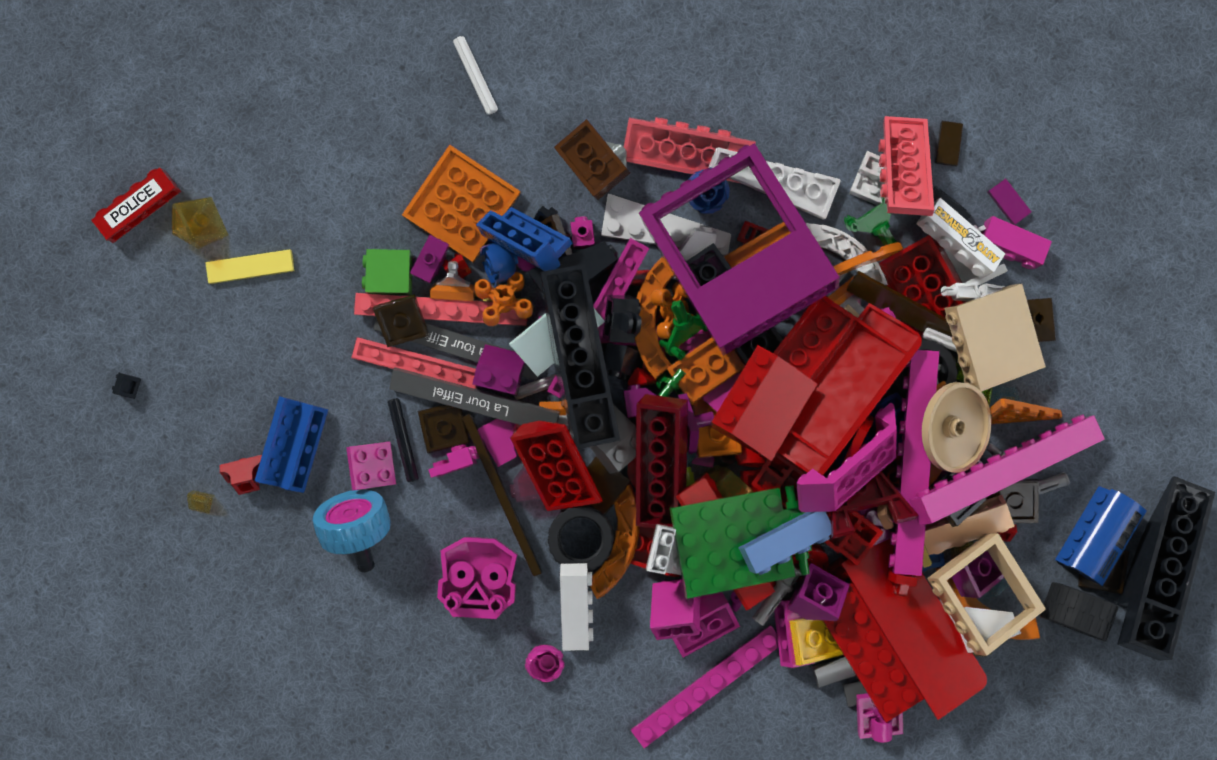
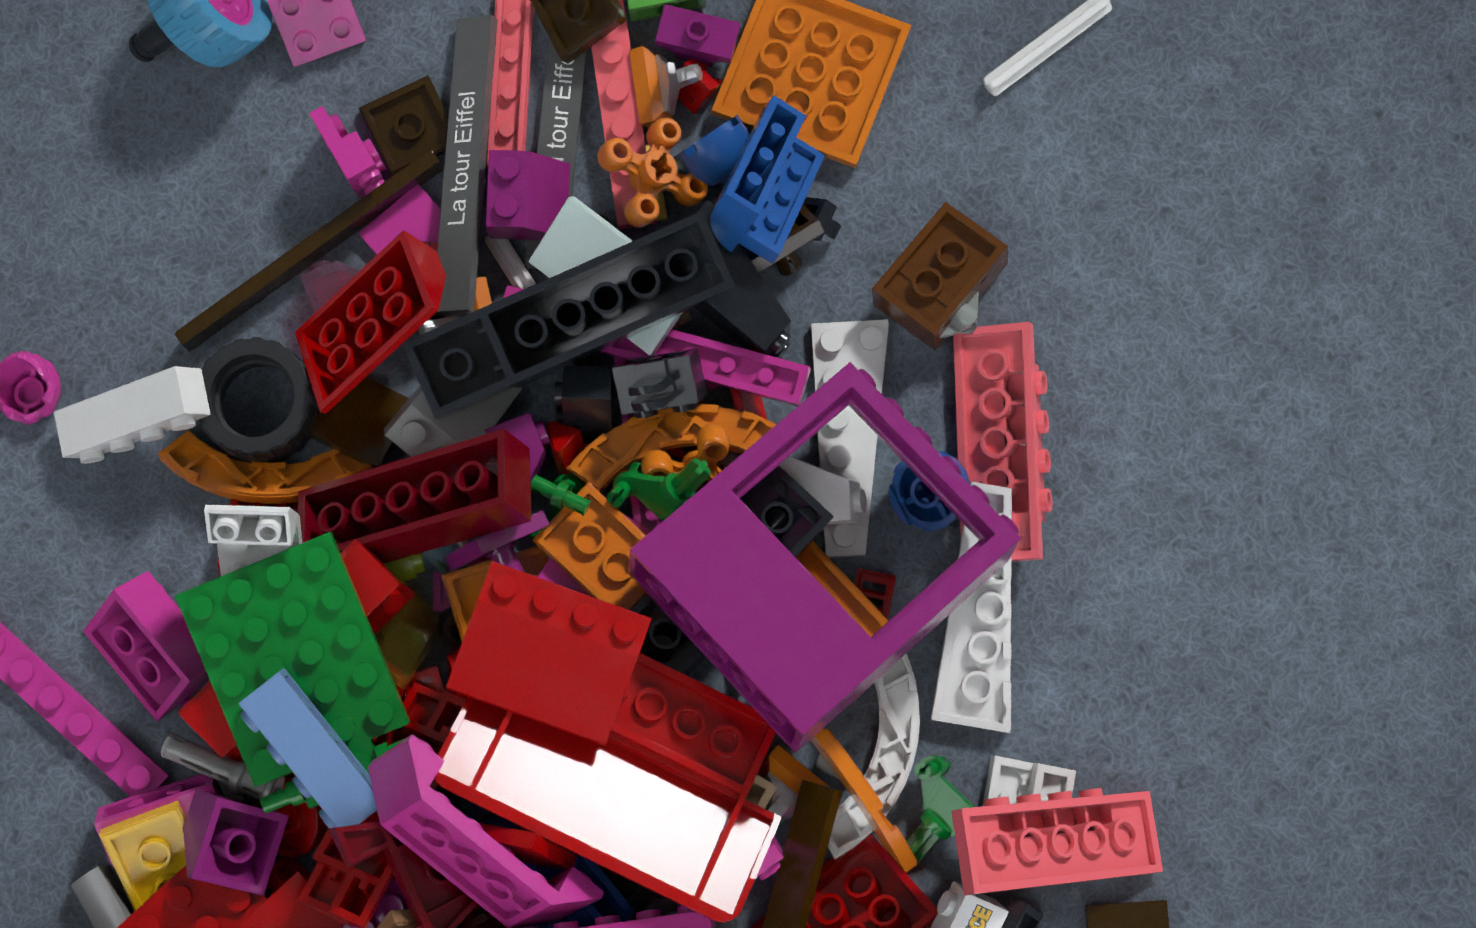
camera: 75 degrees right, 5 degrees down
(403, 440) = (373, 62): black axle -> none
(478, 559) = (188, 234): dark pink brick -> none
(582, 241) = (799, 302): dark pink brick -> none
(672, 612) = (144, 585): dark pink brick -> none

